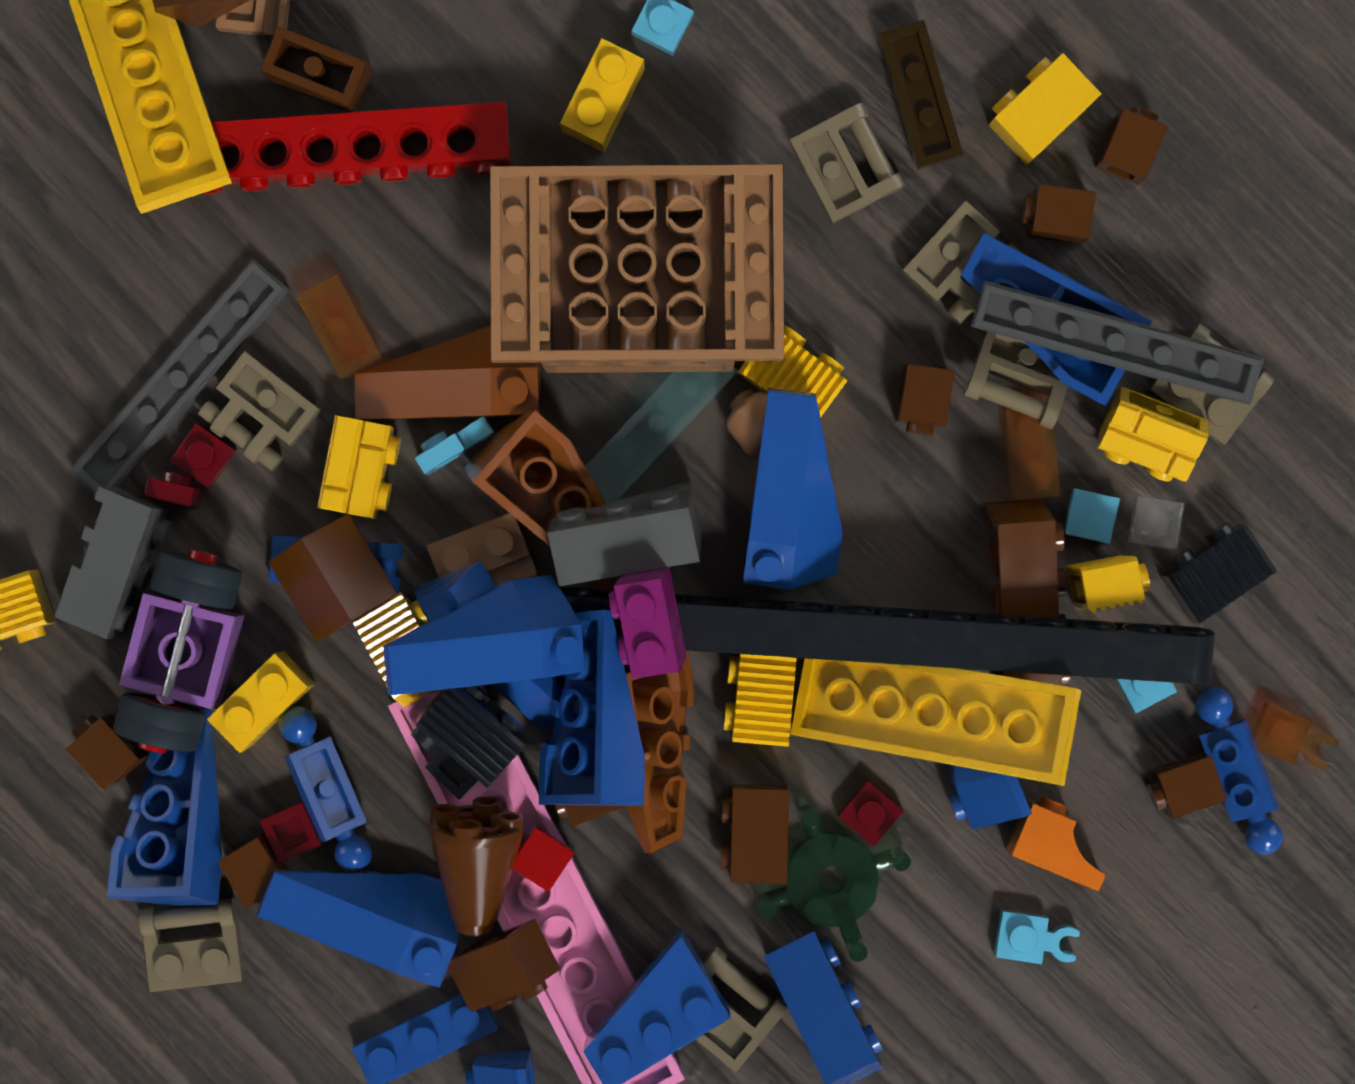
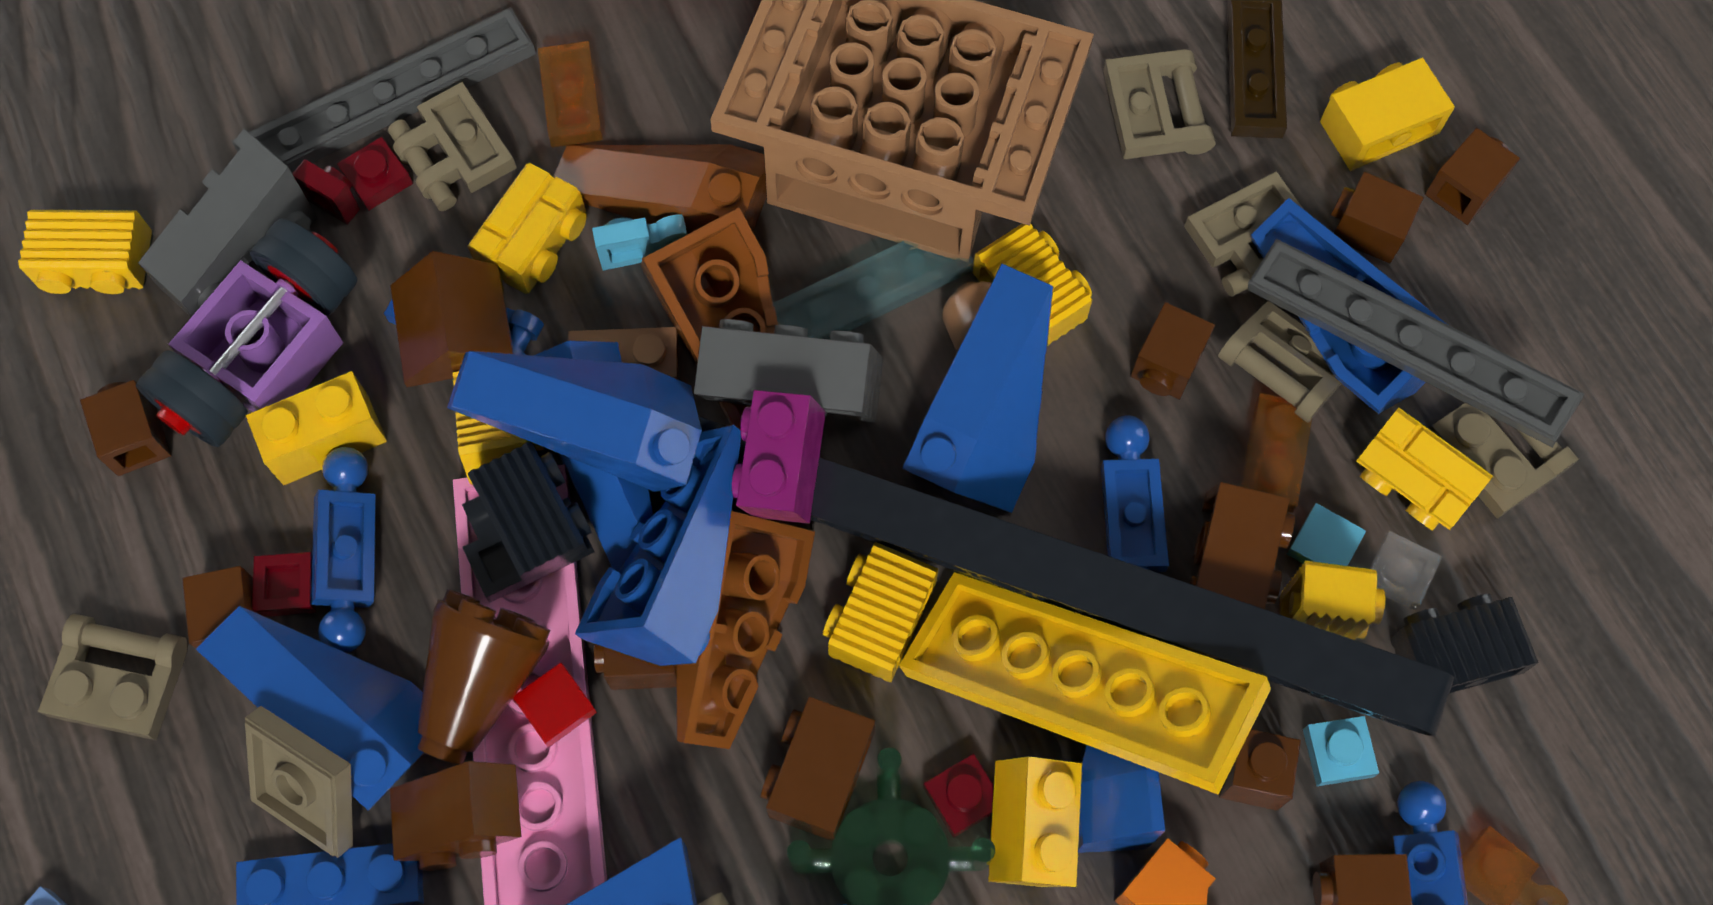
camera: 20 degrees right, 20 degrees down
(172, 832) = (157, 535): blue wedge -> none
(378, 984) = (299, 781): none -> dark tan tile
(932, 541) = (1133, 498): none -> blue plate
(932, 823) = (1036, 822): none -> yellow brick
(1094, 724) = (1263, 771): none -> reddish brown brick

